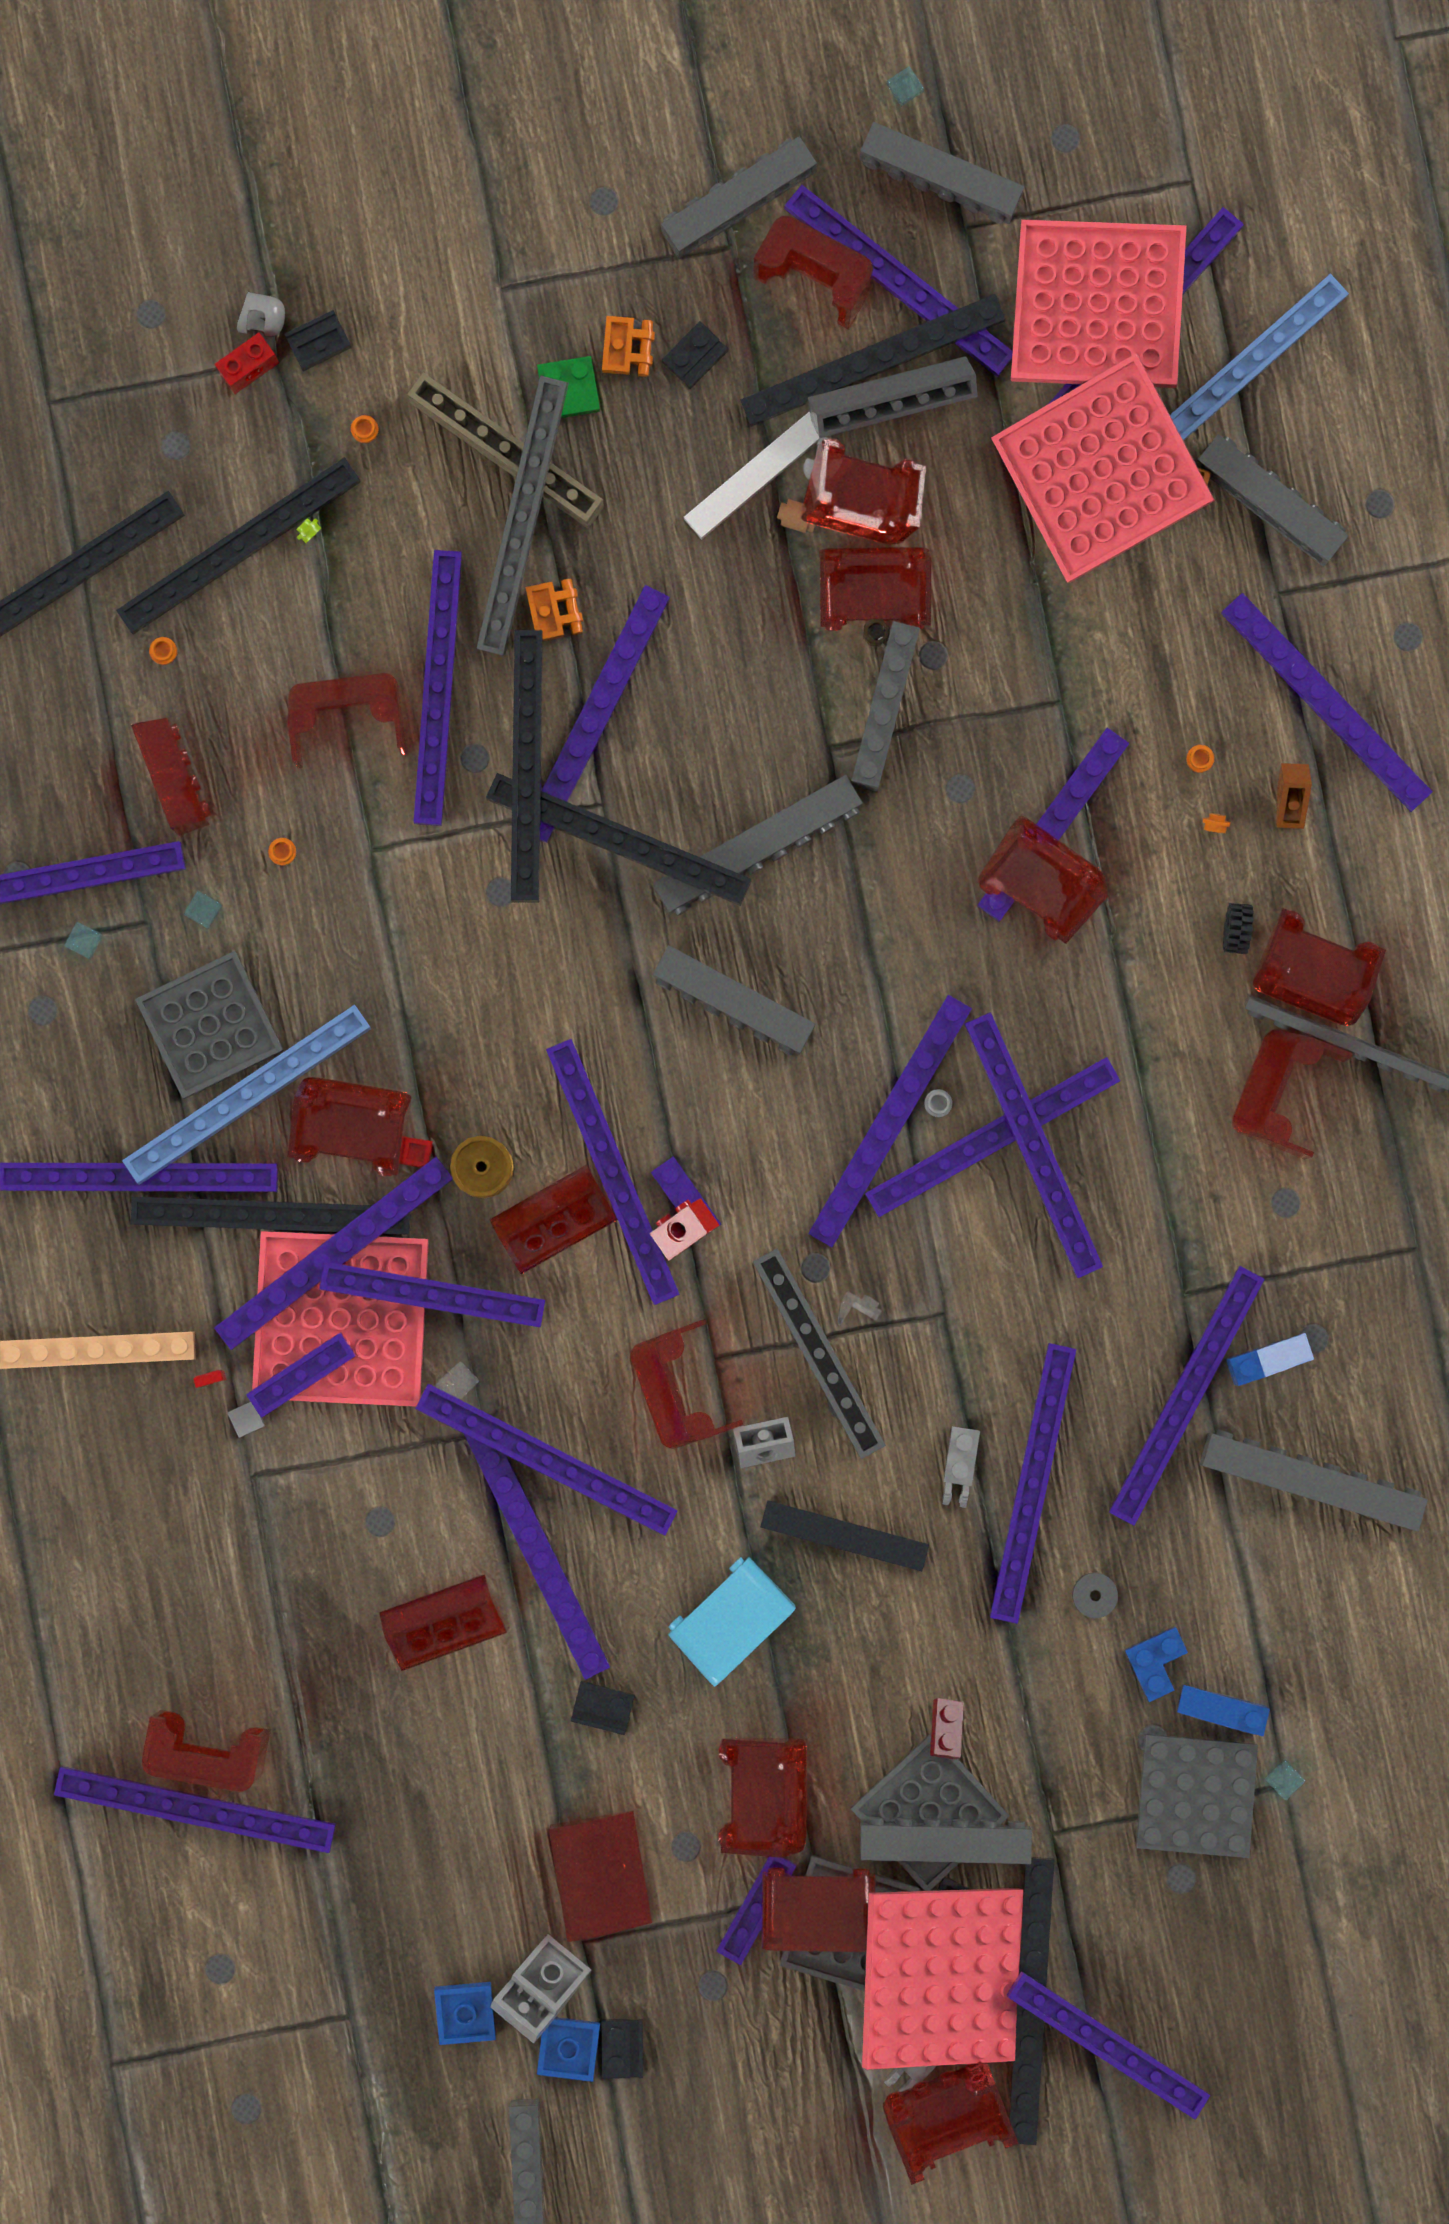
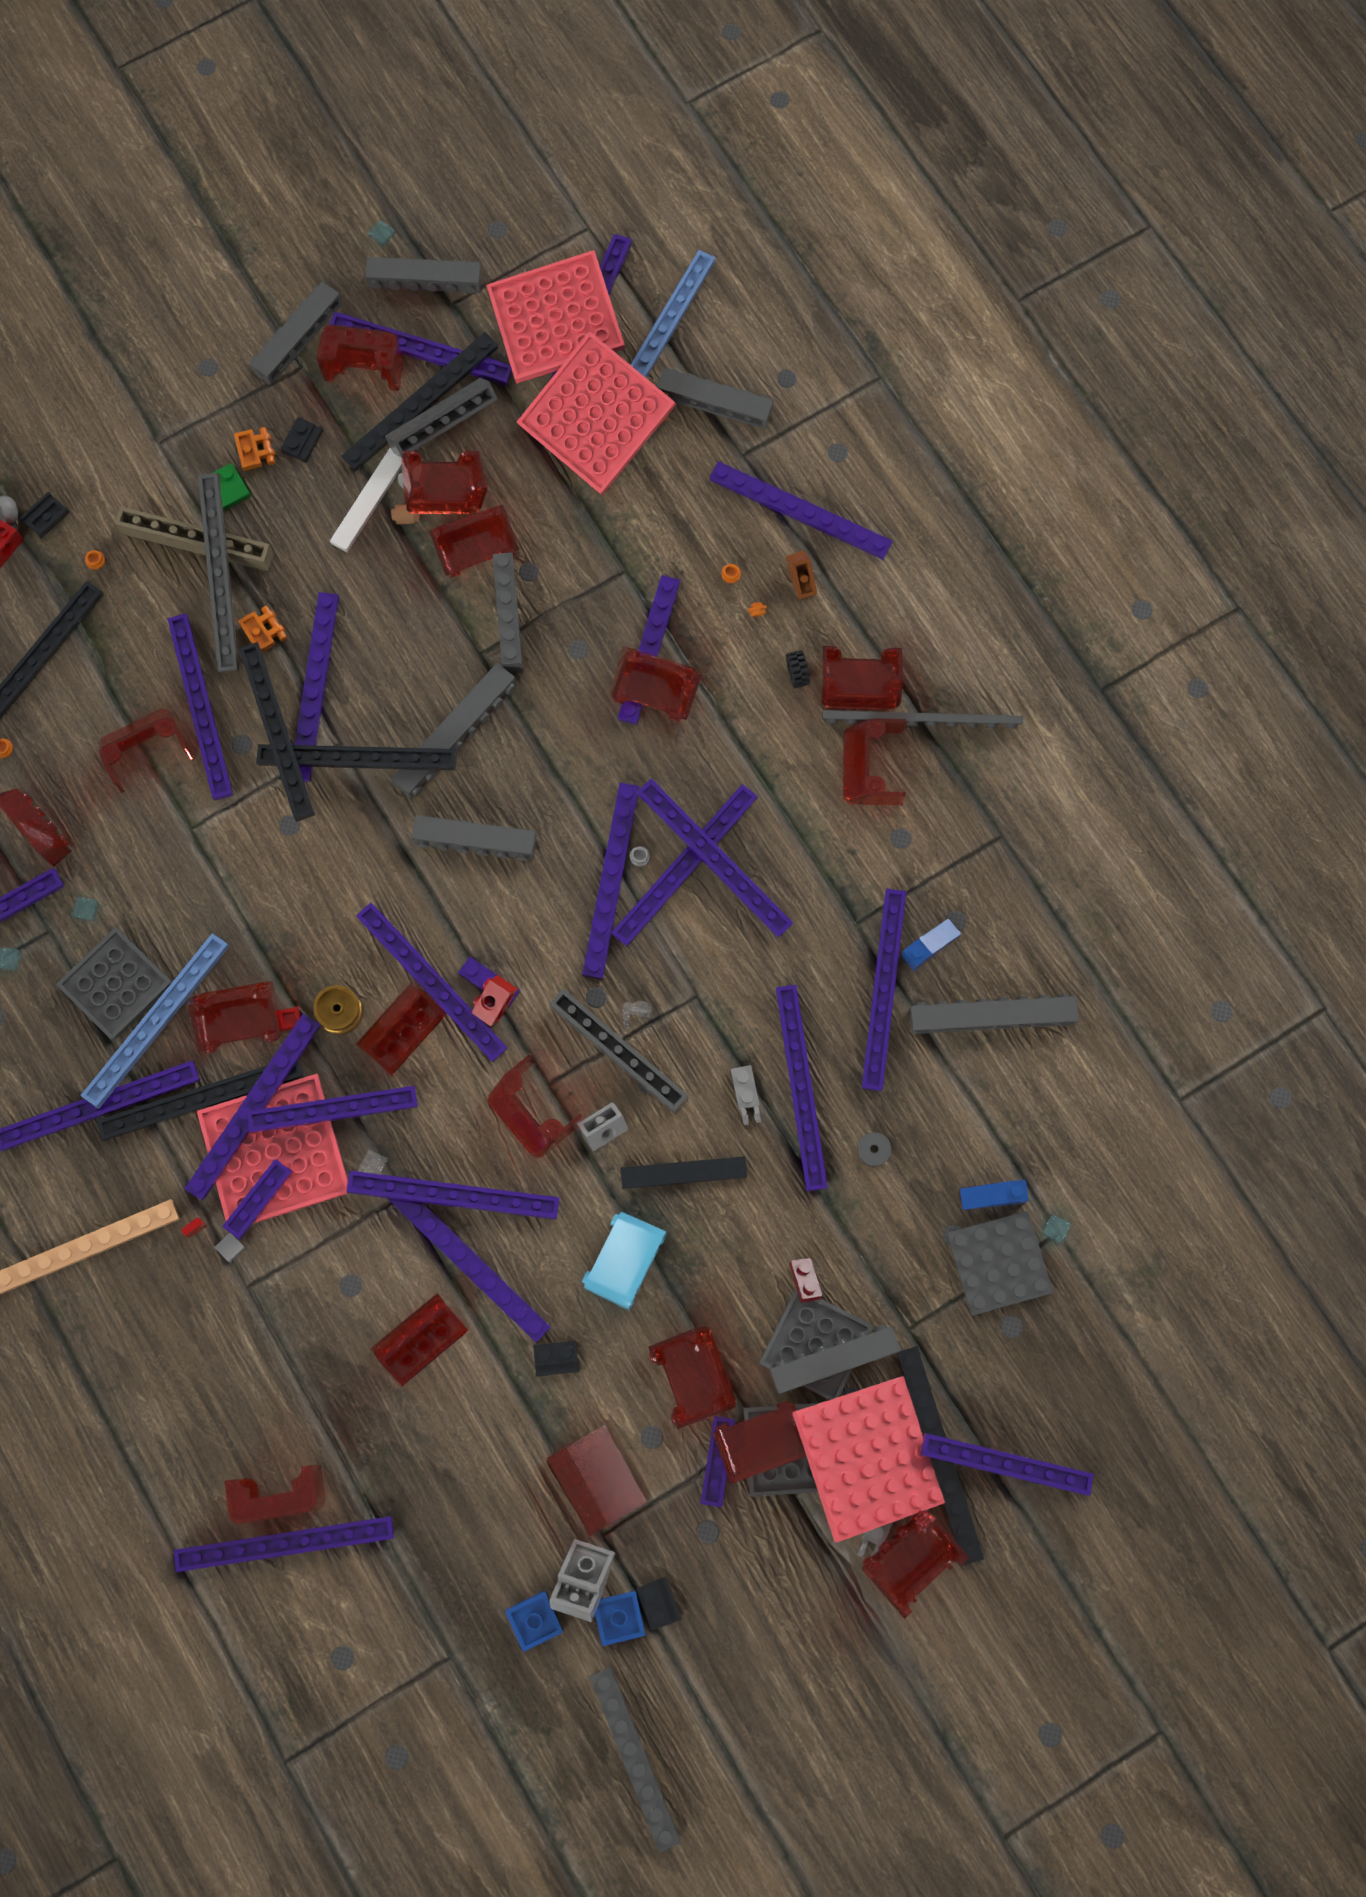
camera: 20 degrees left, 10 degrees down
(282, 851) = (128, 850): orange plate -> none
(308, 530) = (77, 635): lime plate -> none
(876, 632) = (485, 569): dark brown tile -> none
(1148, 1661) = (928, 1180): blue plate -> none

